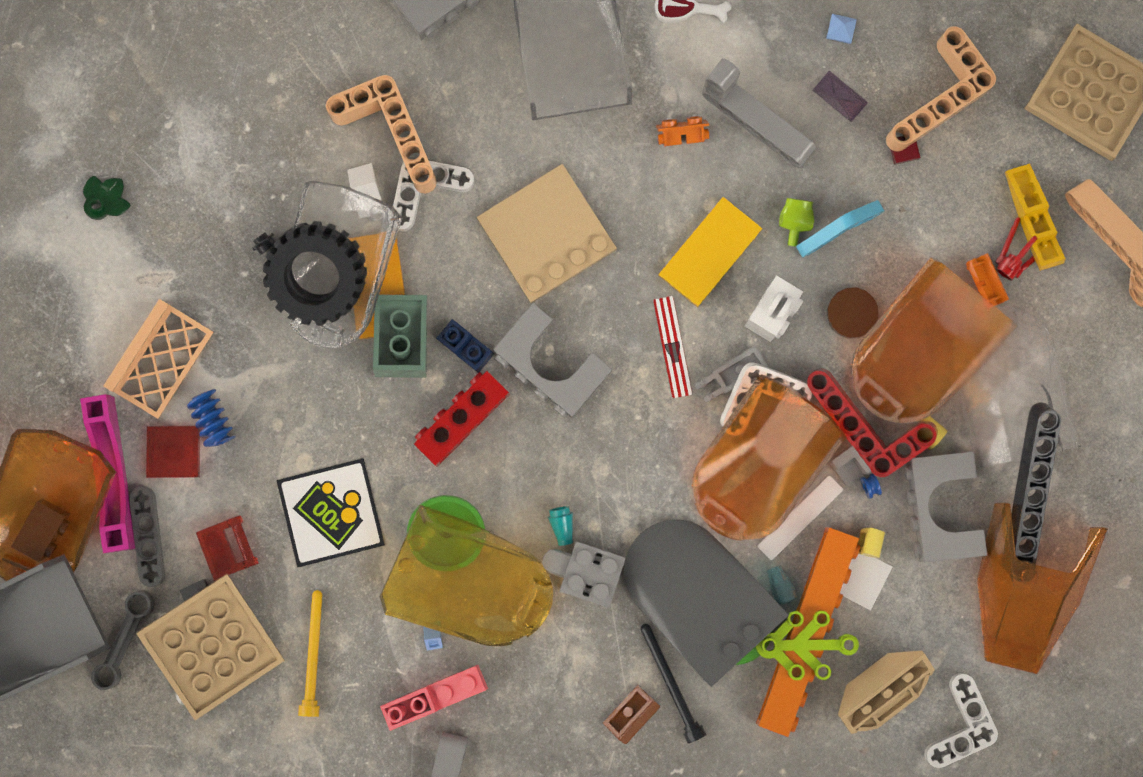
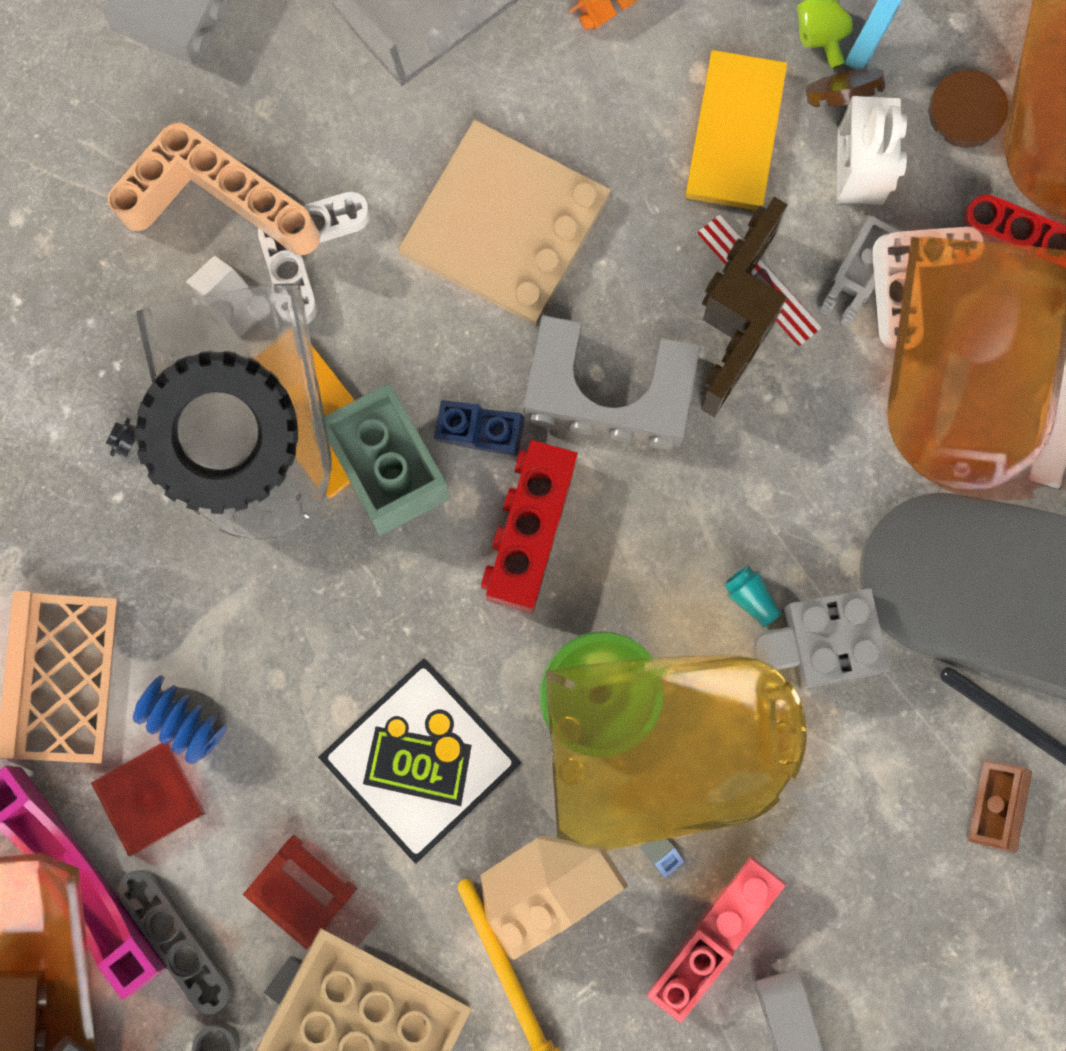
camera: 30 degrees left, 5 degrees down
(354, 621) = (546, 891): none -> tan wedge
(648, 360) = (742, 305): none -> dark brown bracket
(783, 263) = (842, 86): none -> reddish brown tile

